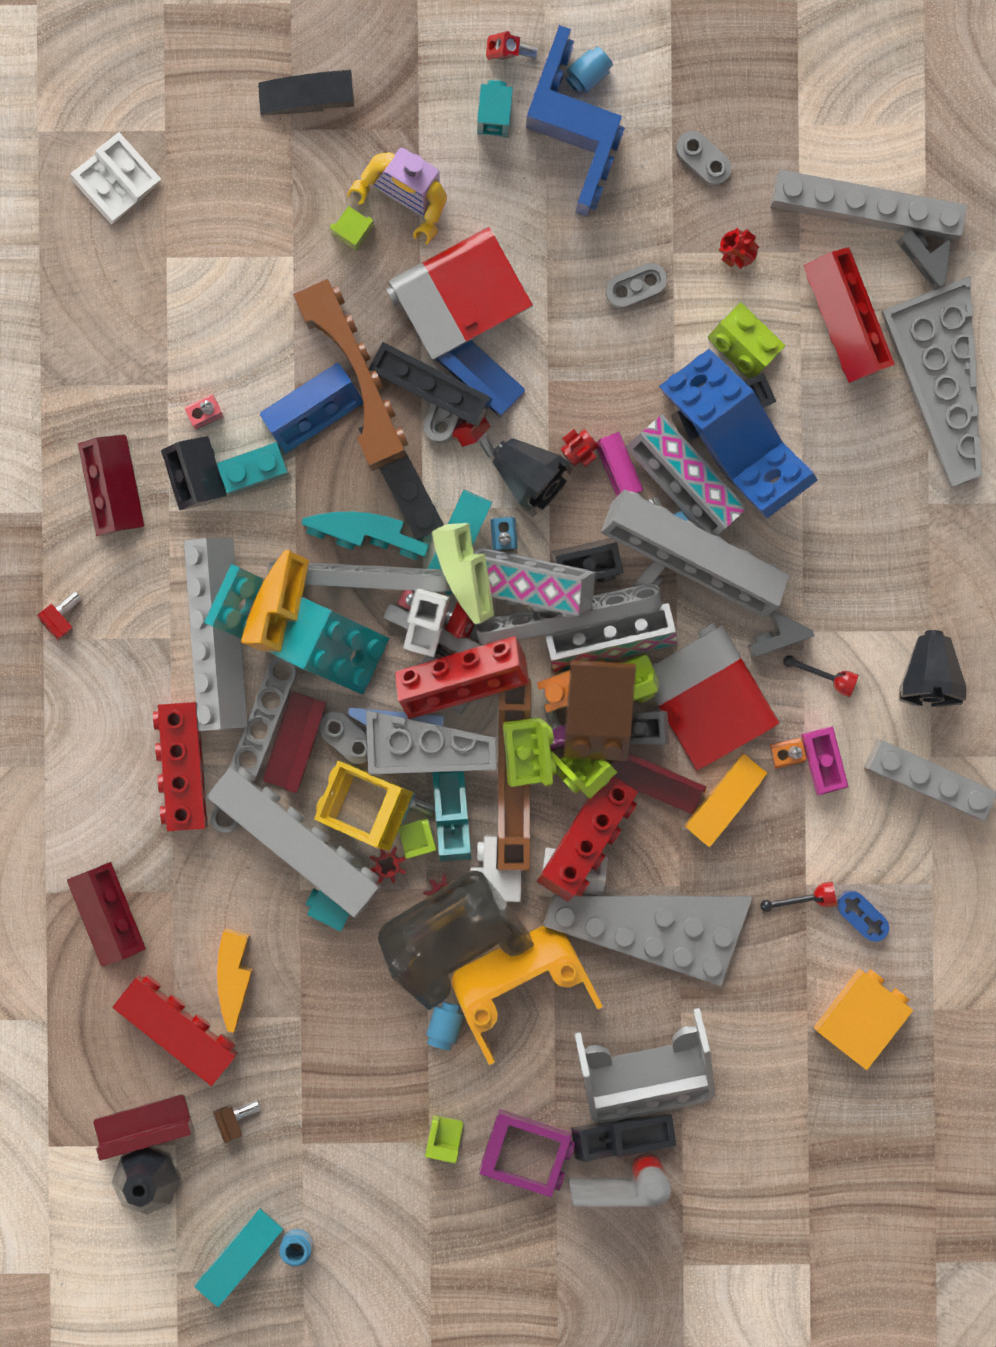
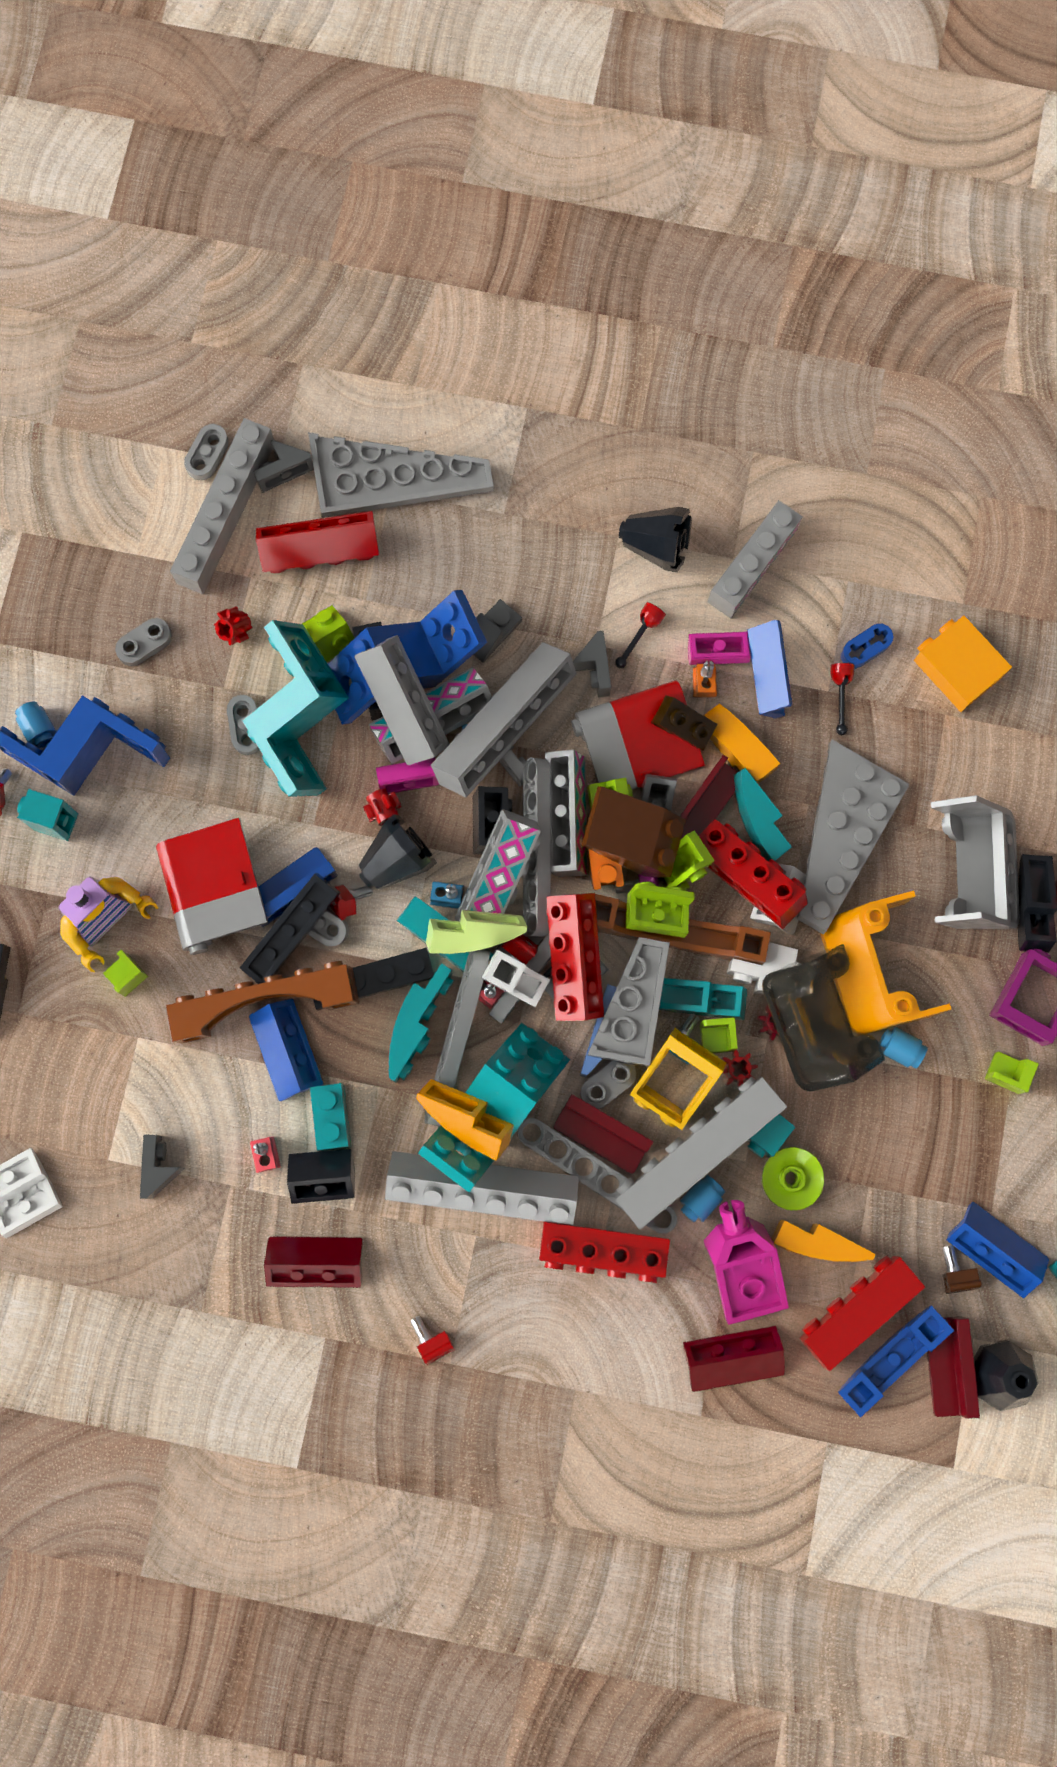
camera: 80 degrees left, 10 degrees down
(137, 1069) = (894, 1359): none -> blue slope
(160, 307) = (153, 1176): none -> dark grey slope
(195, 907) = (745, 1266): none -> dark pink plate
(251, 853) = (702, 1199): none -> dark azure brick
(265, 1156) = (999, 1250): none -> blue panel
(287, 954) = (807, 1182): none -> lime dish
(639, 322) = (294, 709): none -> teal bracket
(649, 837) = (759, 816): none -> teal slope
(685, 446) = (402, 701): none -> light grey panel
(732, 739) = (684, 722): none -> dark brown plate
(799, 522) = (496, 627): none -> dark grey slope
(811, 817) = (770, 669): none -> panel
(925, 172) = (204, 453): none -> light grey plate

